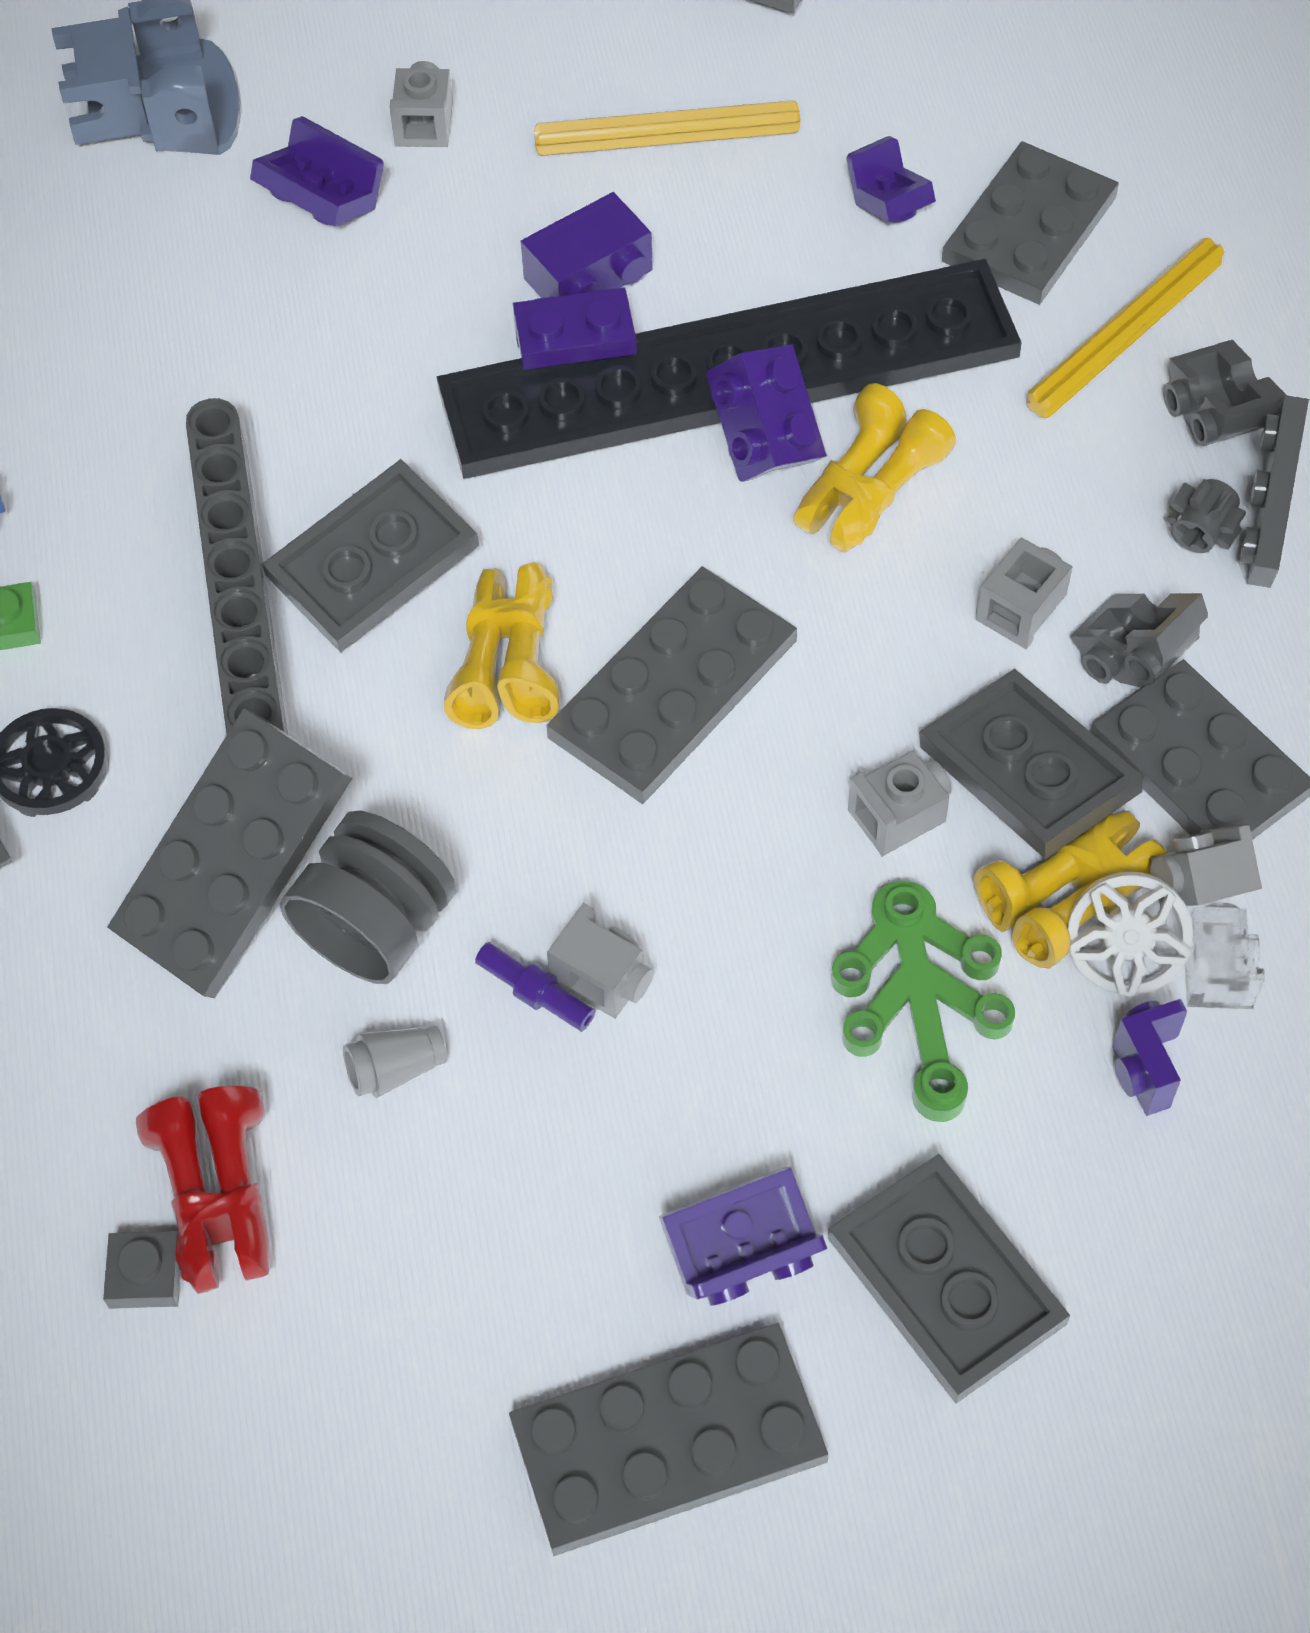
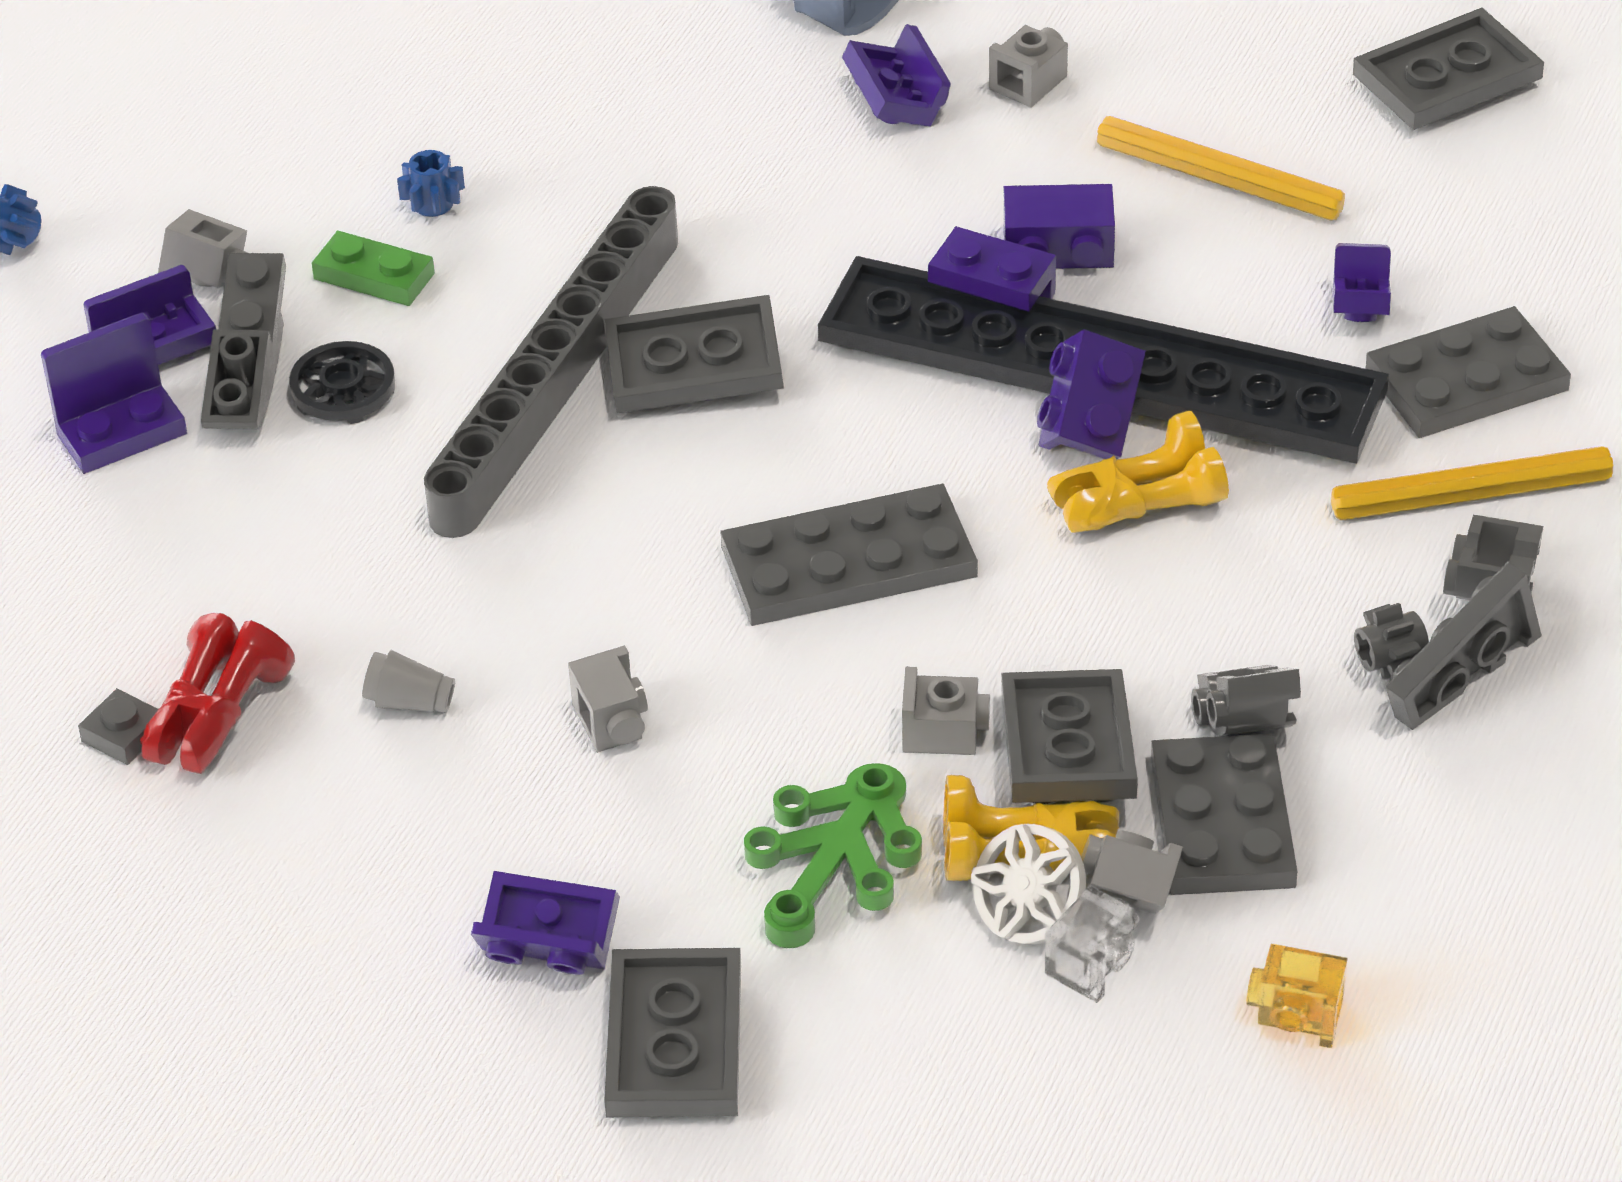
camera: 35 degrees right, 15 degrees down
(229, 853) = (402, 486): dark grey plate -> none
(368, 897) = (486, 559): dark grey wheel -> none
(523, 685) = (715, 470): yellow piece -> none
(535, 986) = (552, 695): dark purple bar -> none
(667, 1438) = (381, 1022): dark grey plate -> none
(1023, 592) = (1183, 619): light grey brick -> none
(1141, 1057) = (972, 960): dark purple bracket -> none

